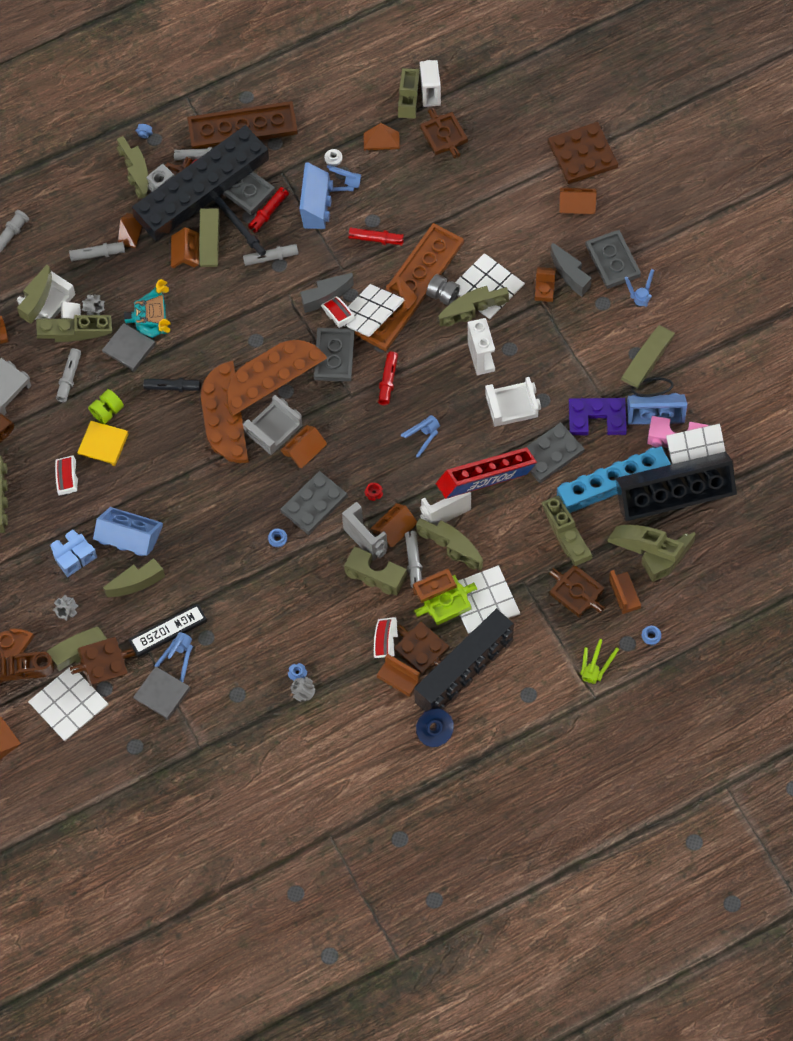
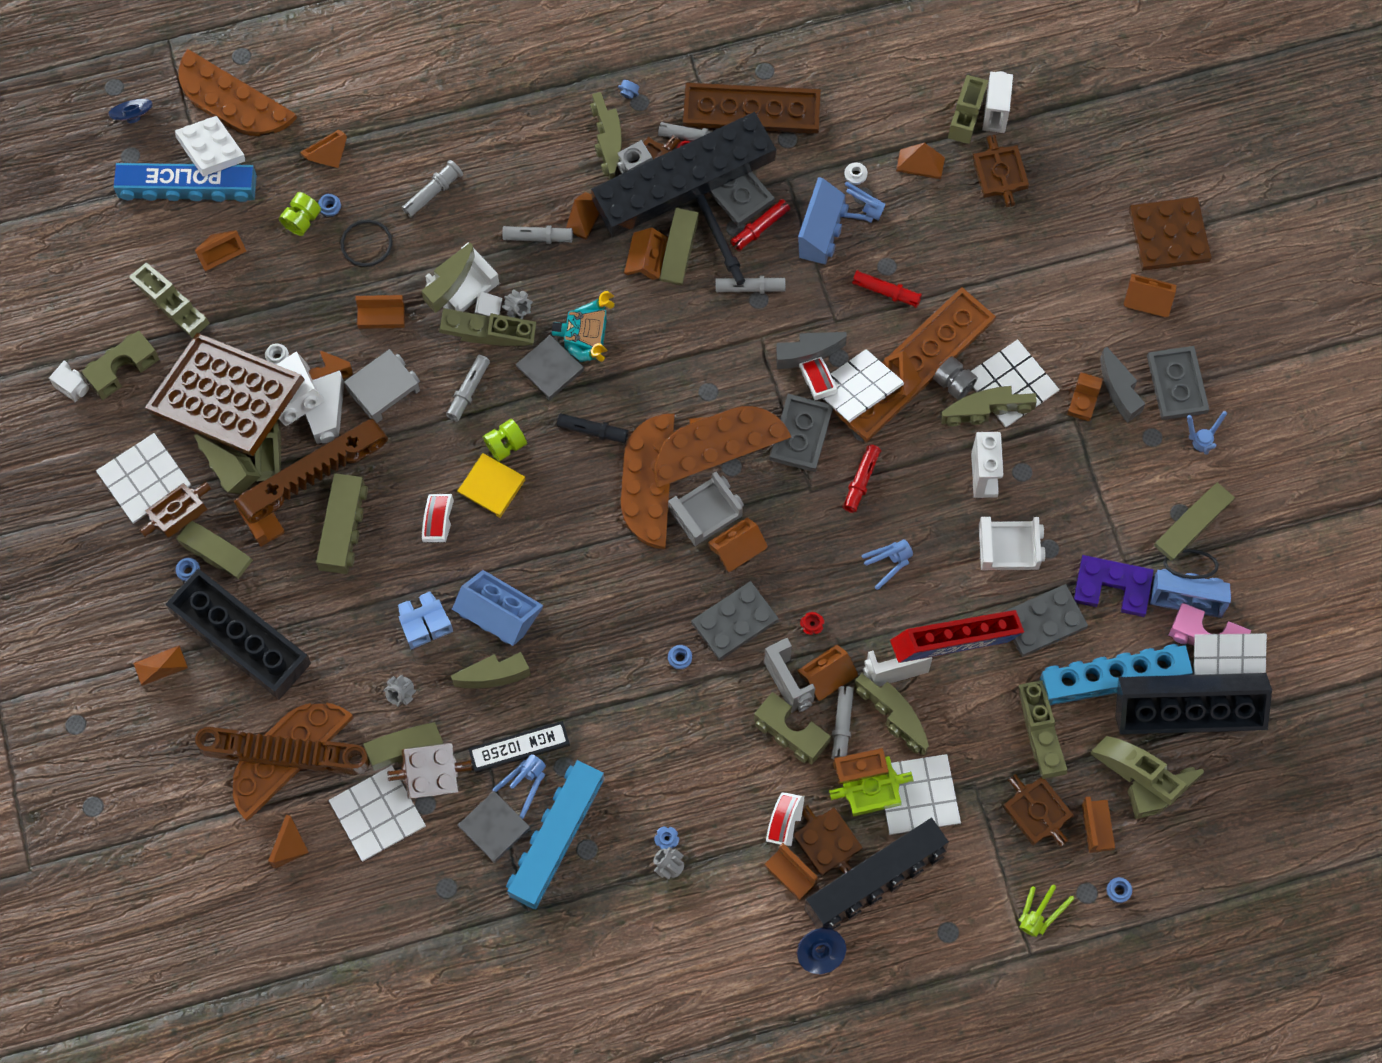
camera: 10 degrees right, 5 degrees up
(211, 687) = (555, 835): none -> dark azure brick

